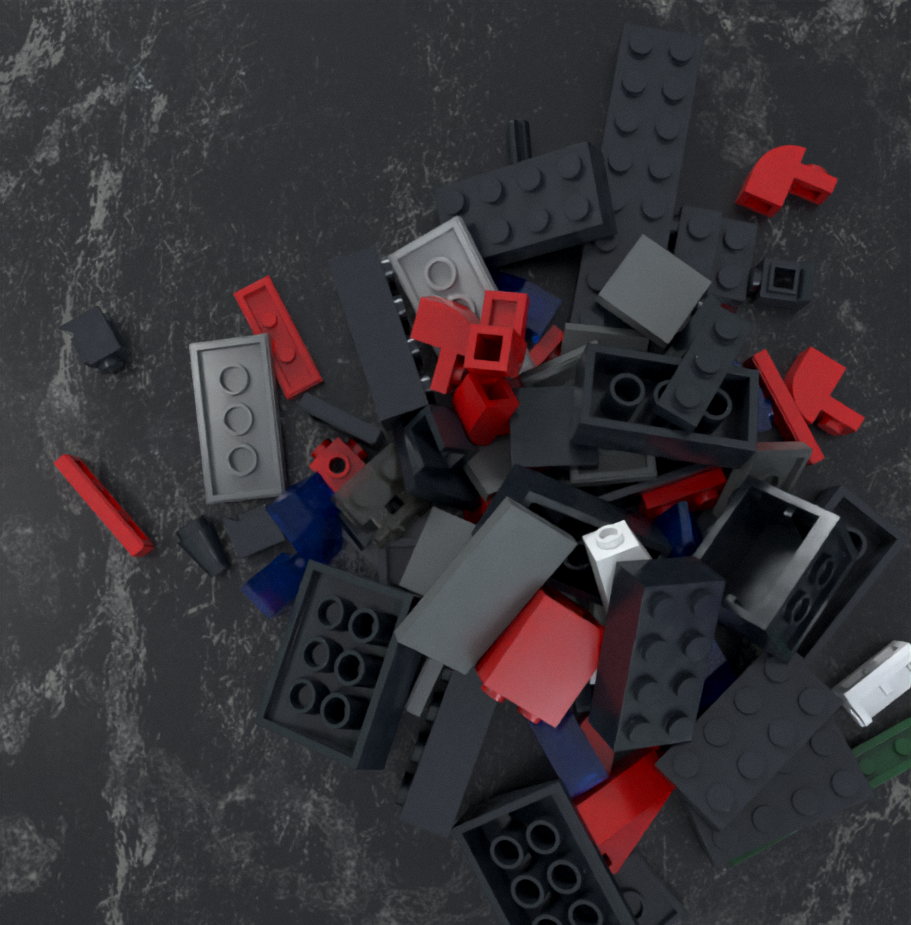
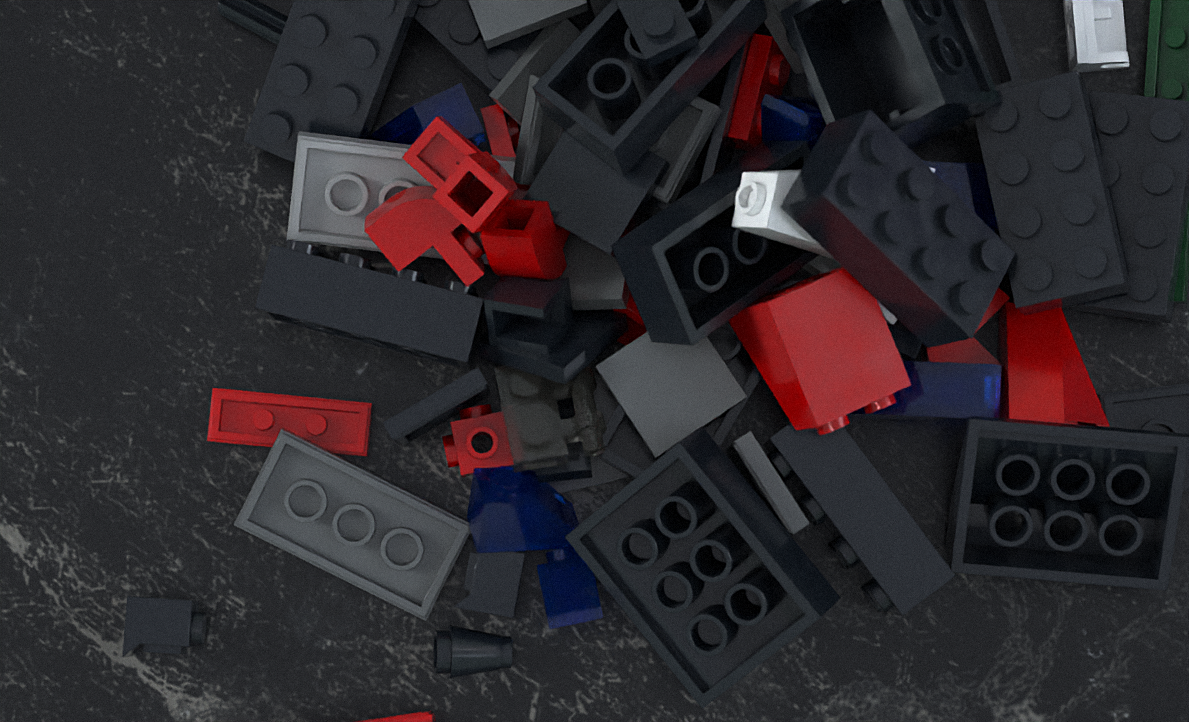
camera: 60 degrees left, 0 degrees up
(485, 586) = (719, 359): dark grey tile -> none

